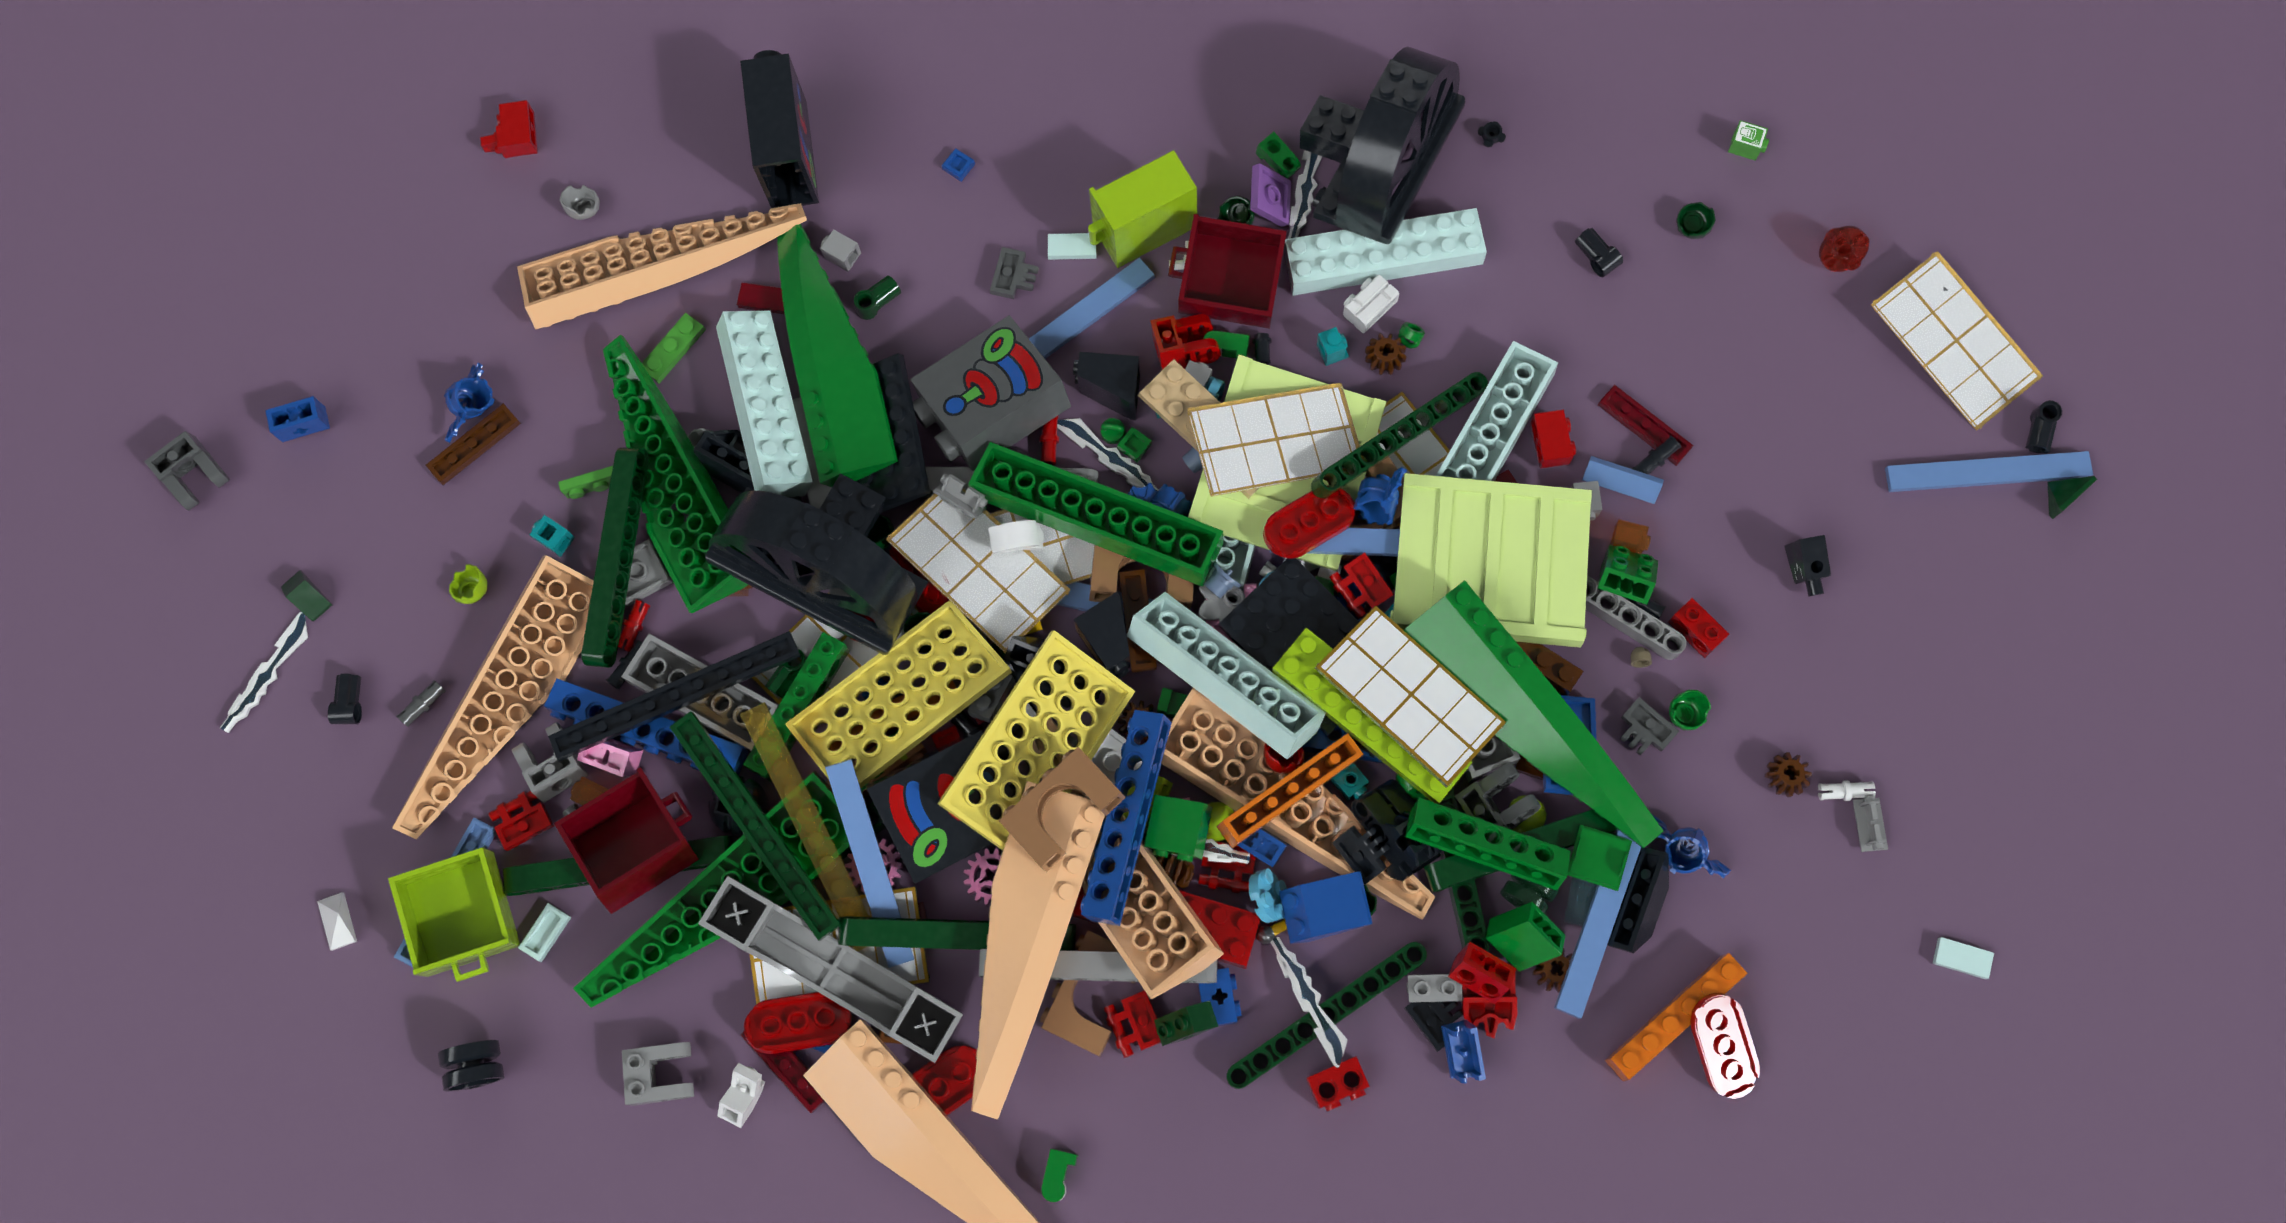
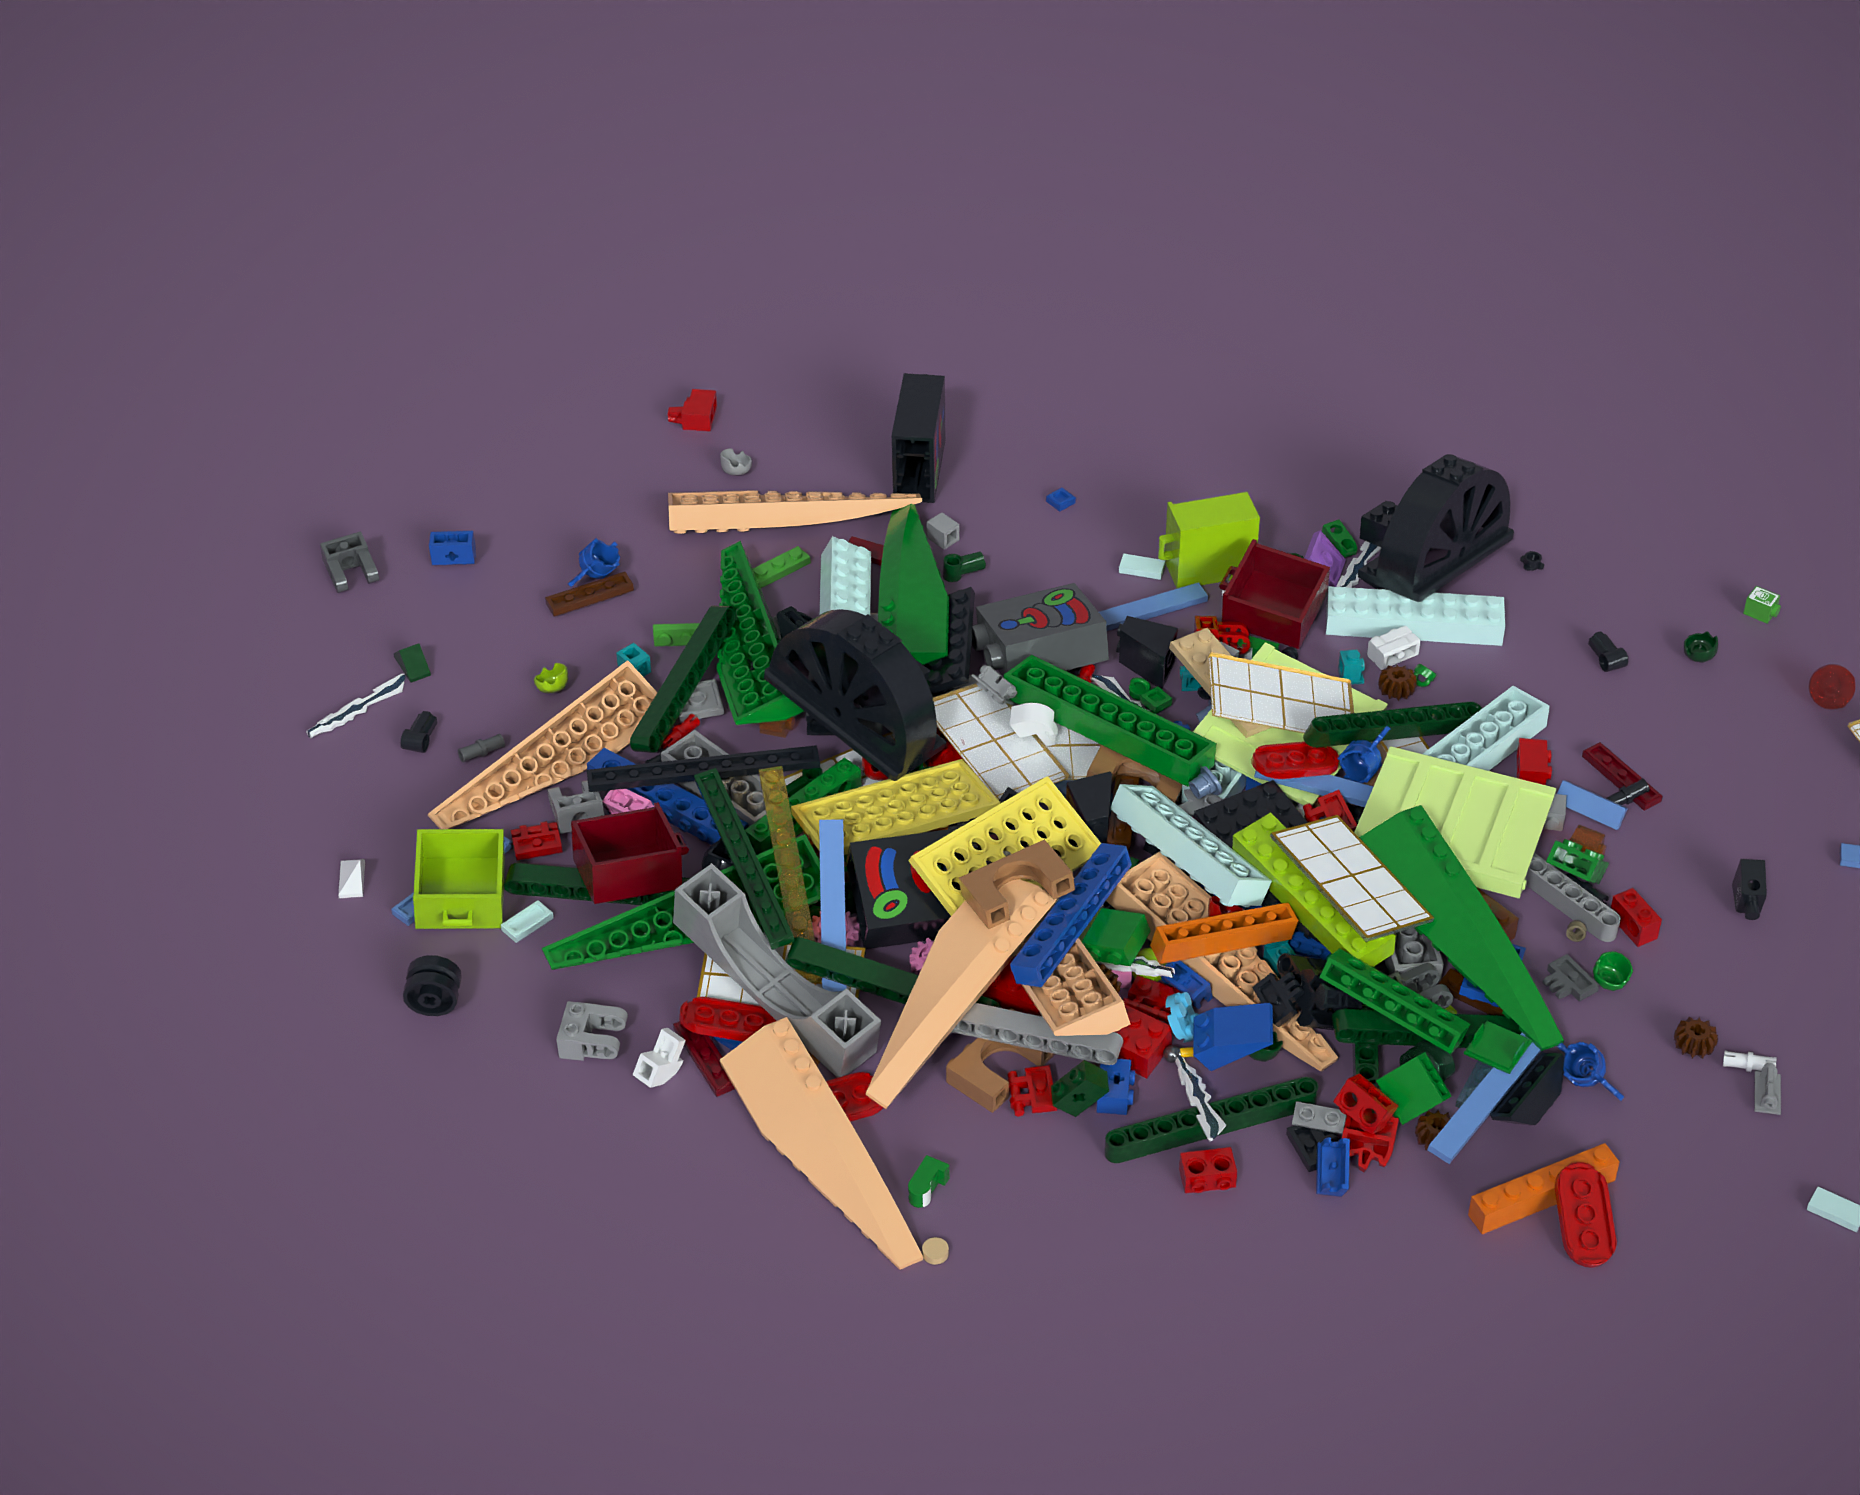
camera: 10 degrees right, 30 degrees down
(1012, 273) = (1085, 571): dark grey hinge -> none

